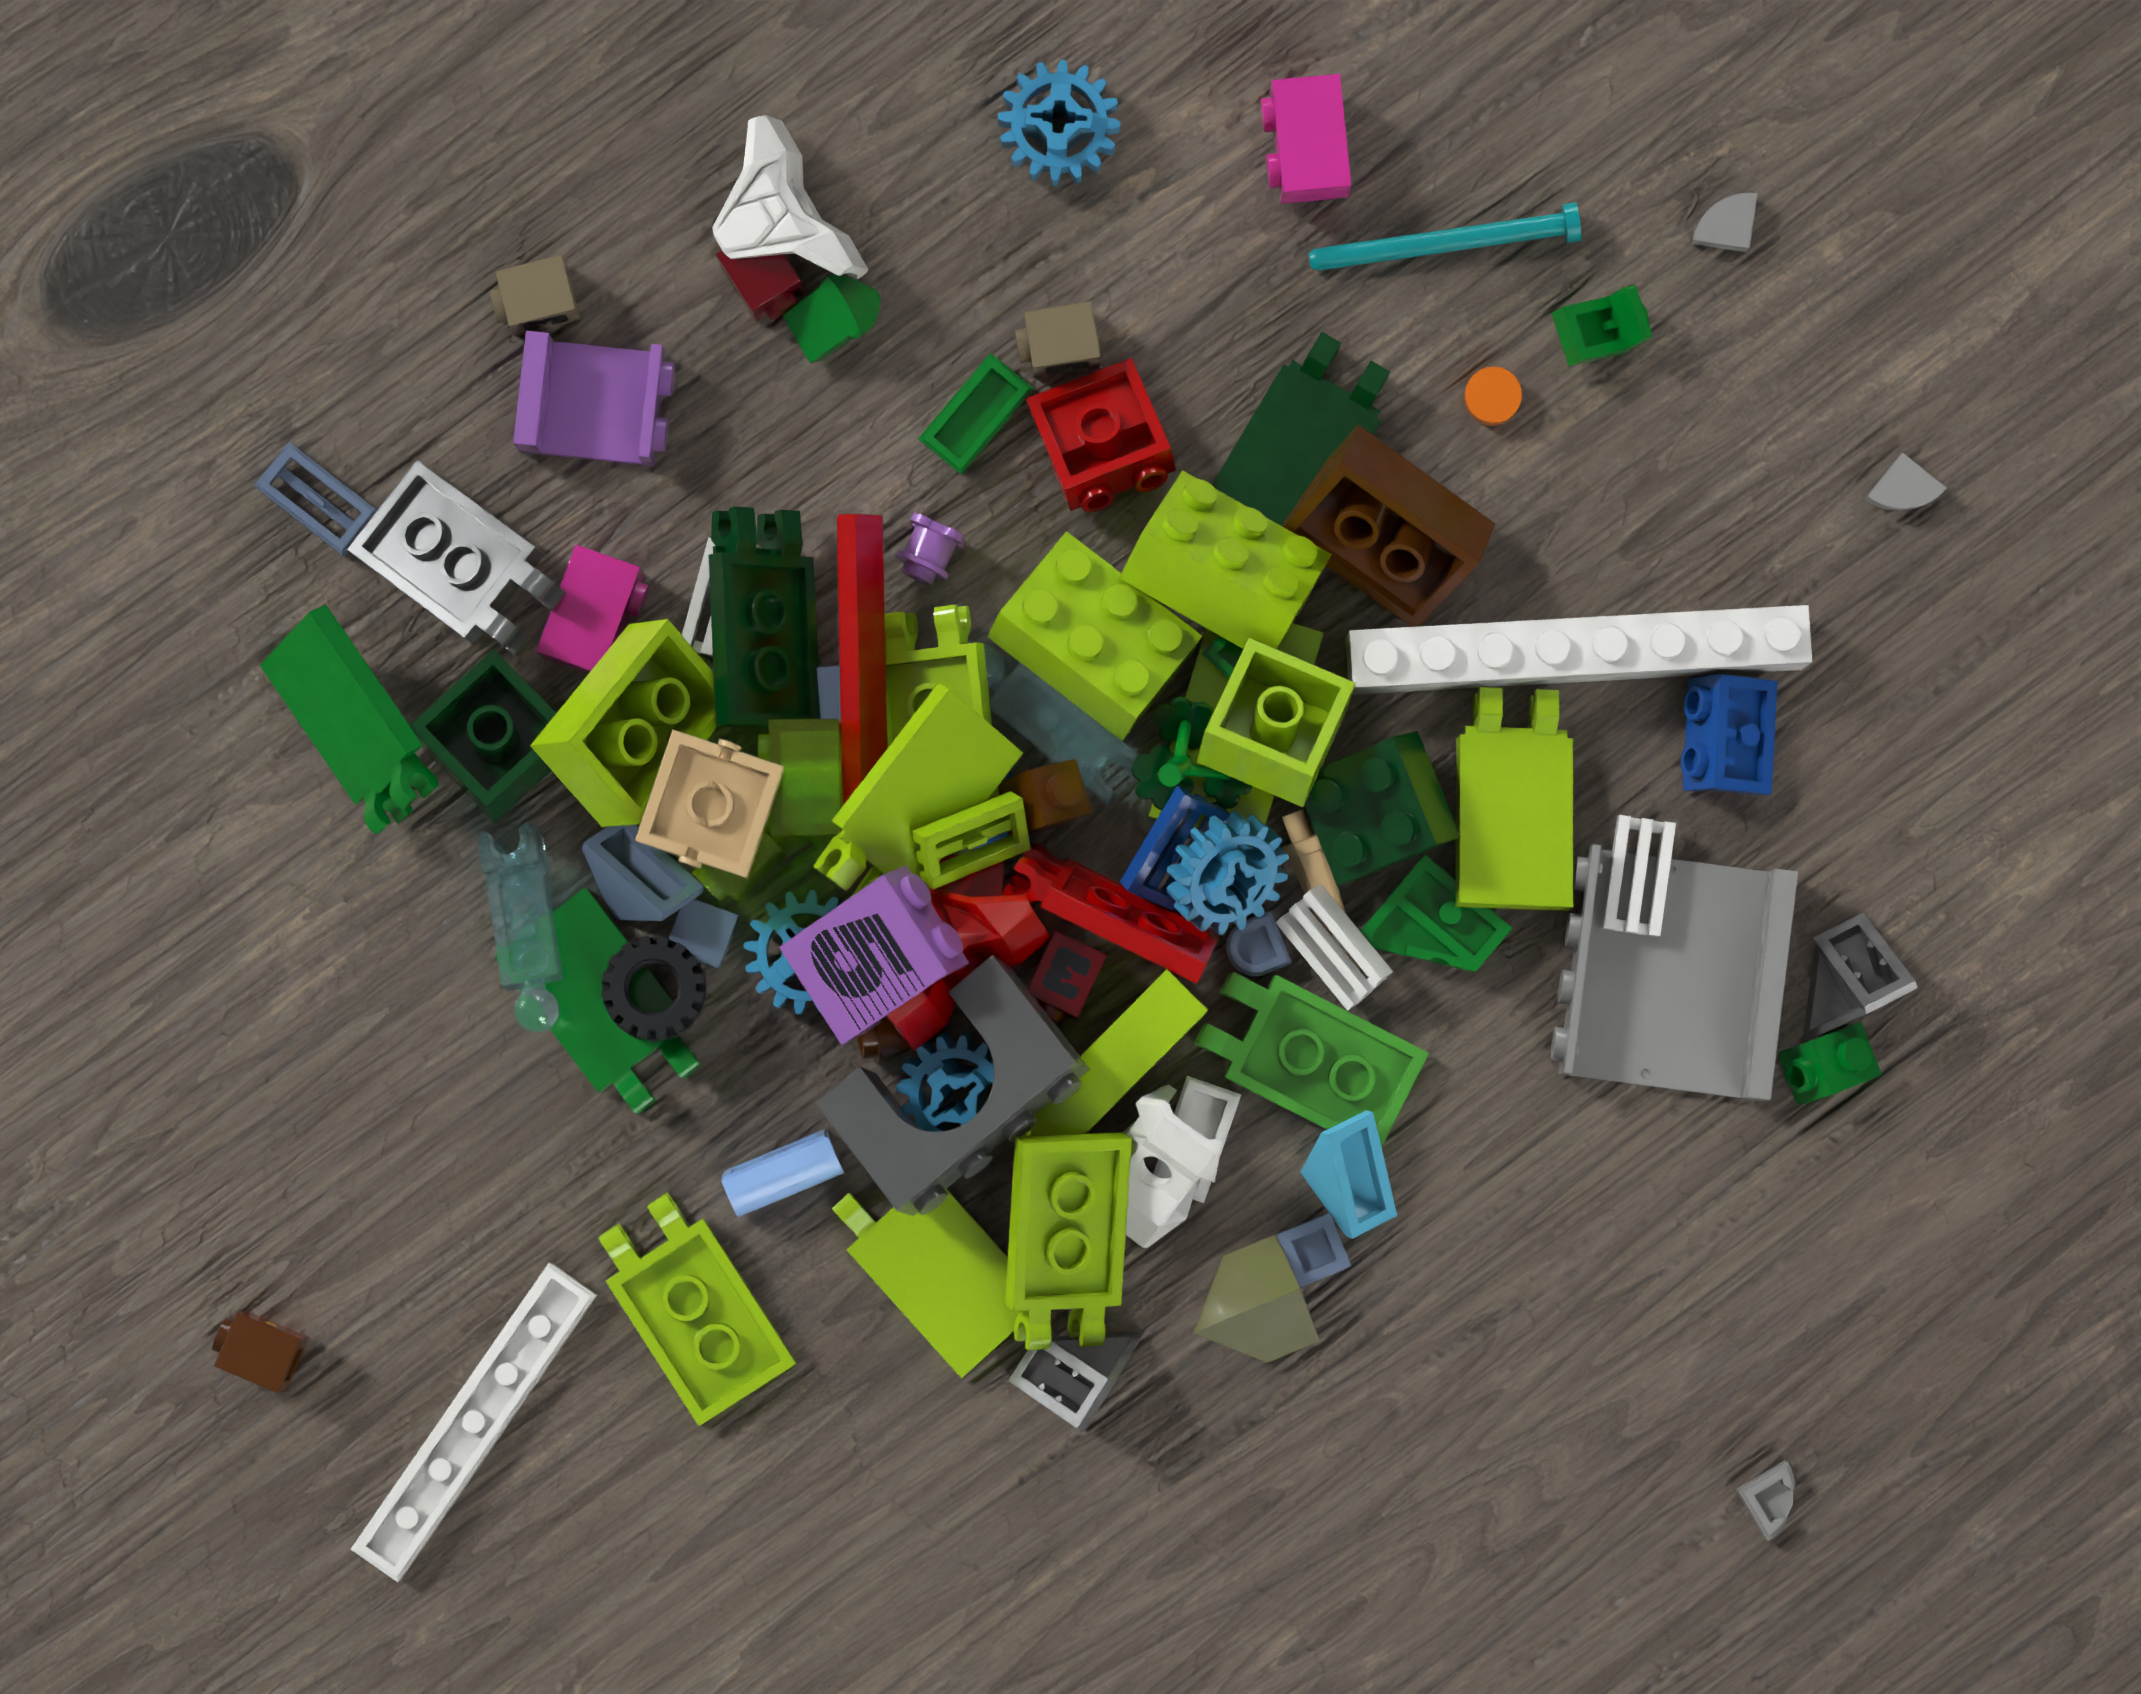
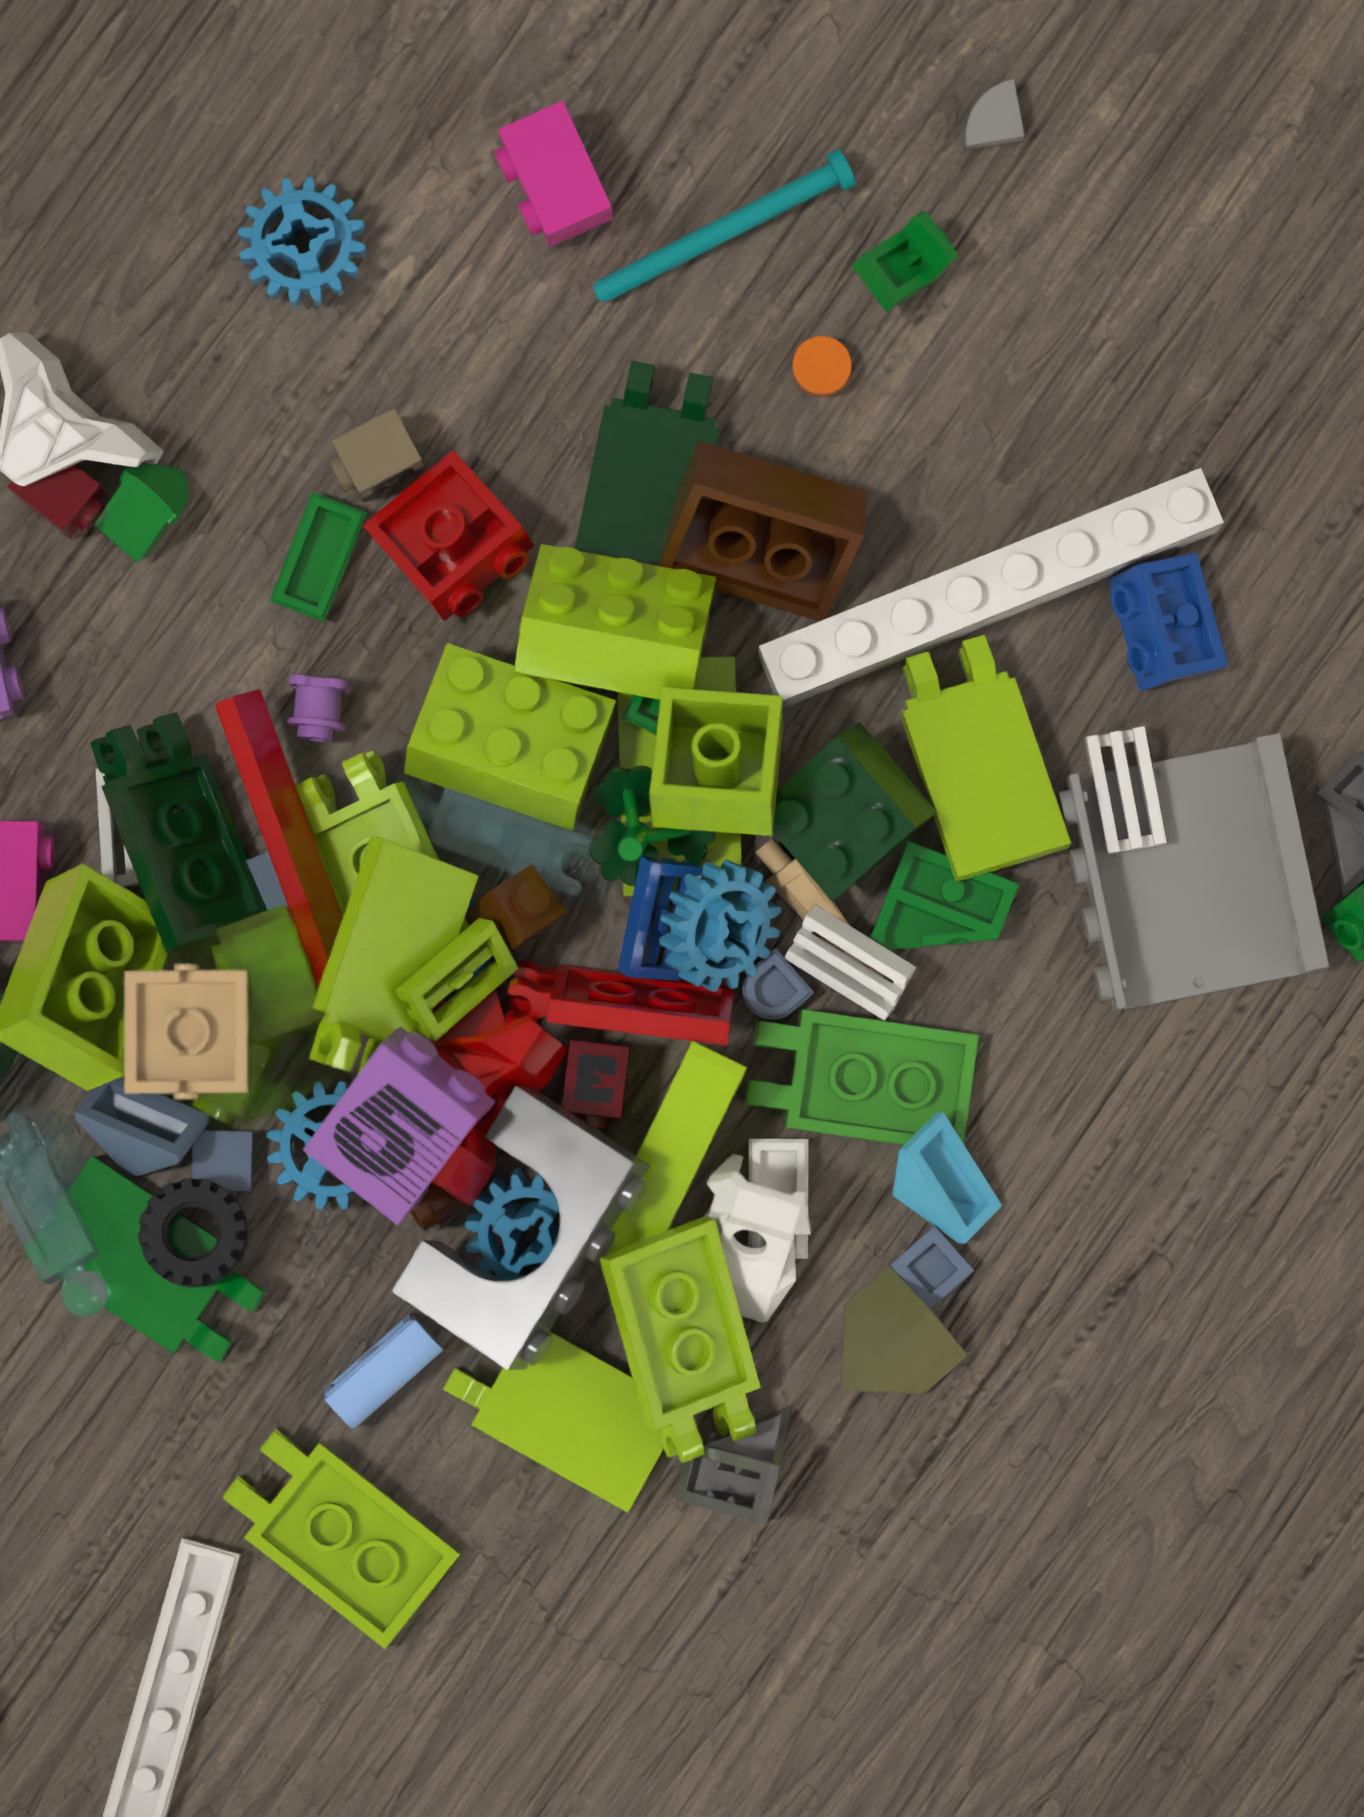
camera: 15 degrees left, 0 degrees up
(1905, 486) = (1256, 318): light grey tile -> none

